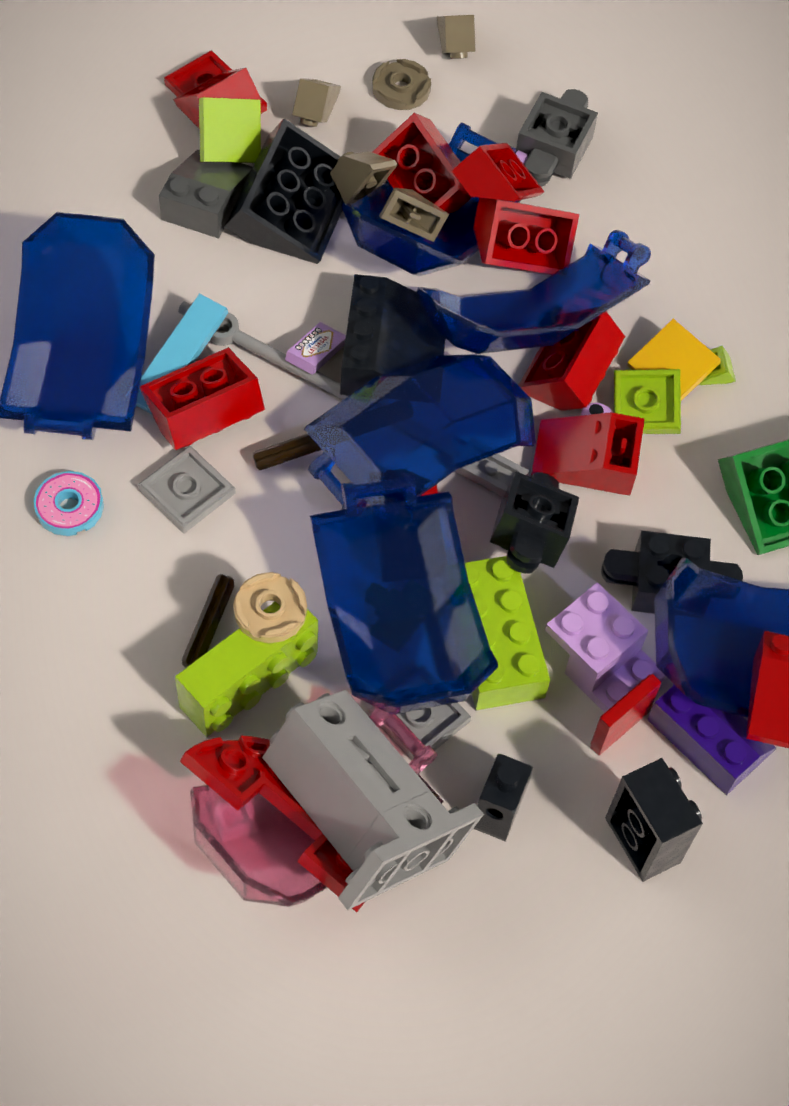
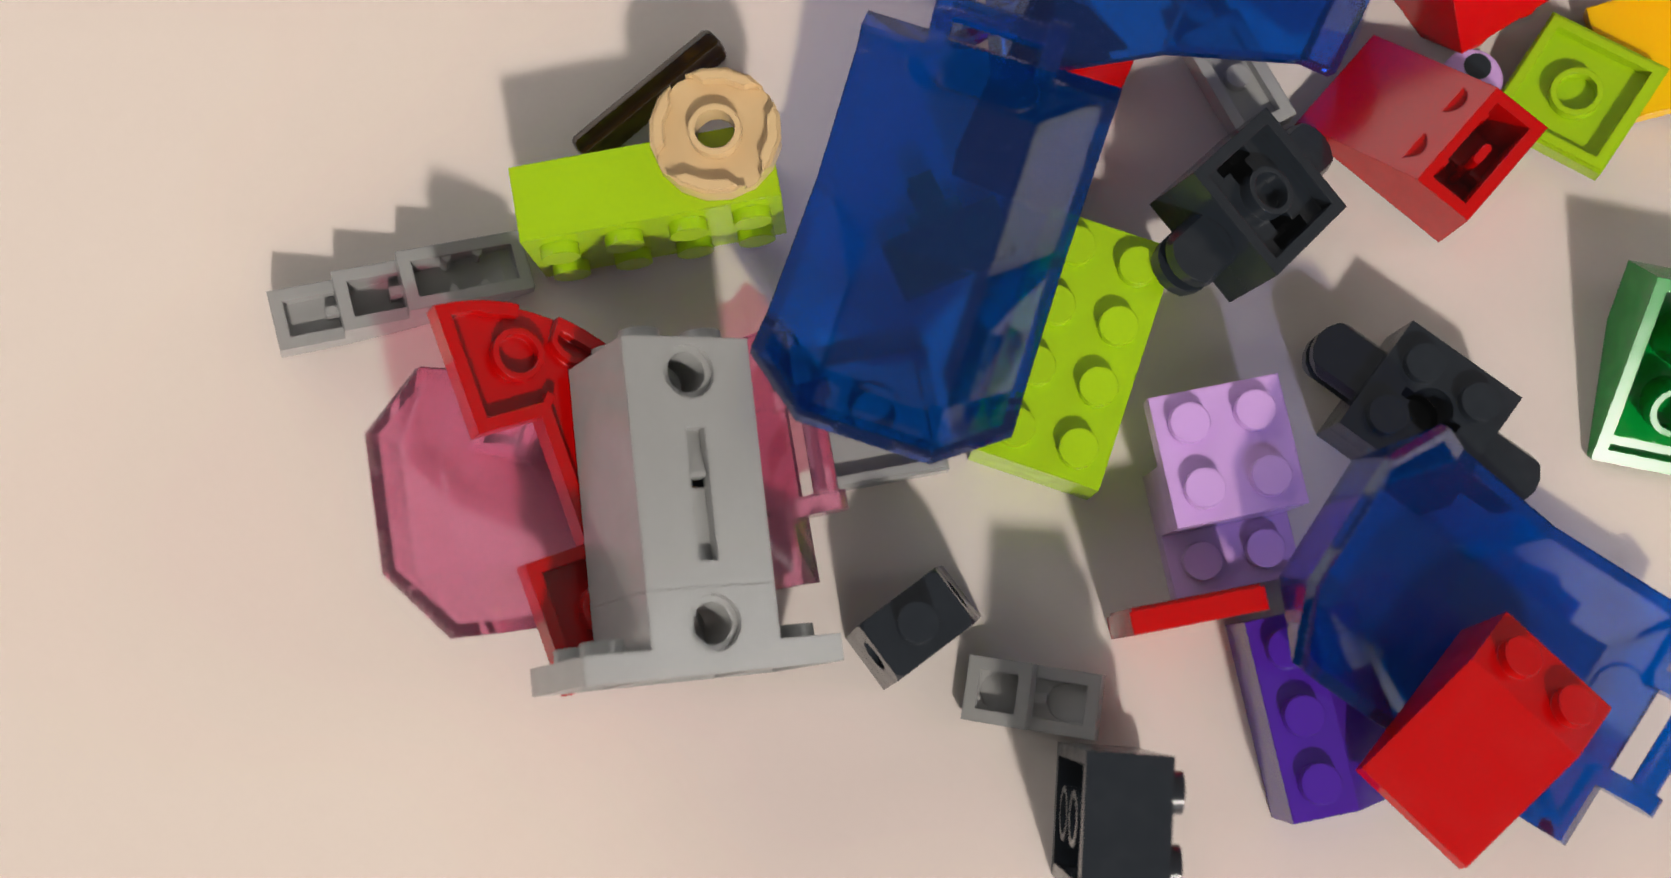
camera: 40 degrees right, 20 degrees up
(135, 784) = (398, 293): none -> light grey slope
(578, 802) = (1033, 697): none -> light grey slope

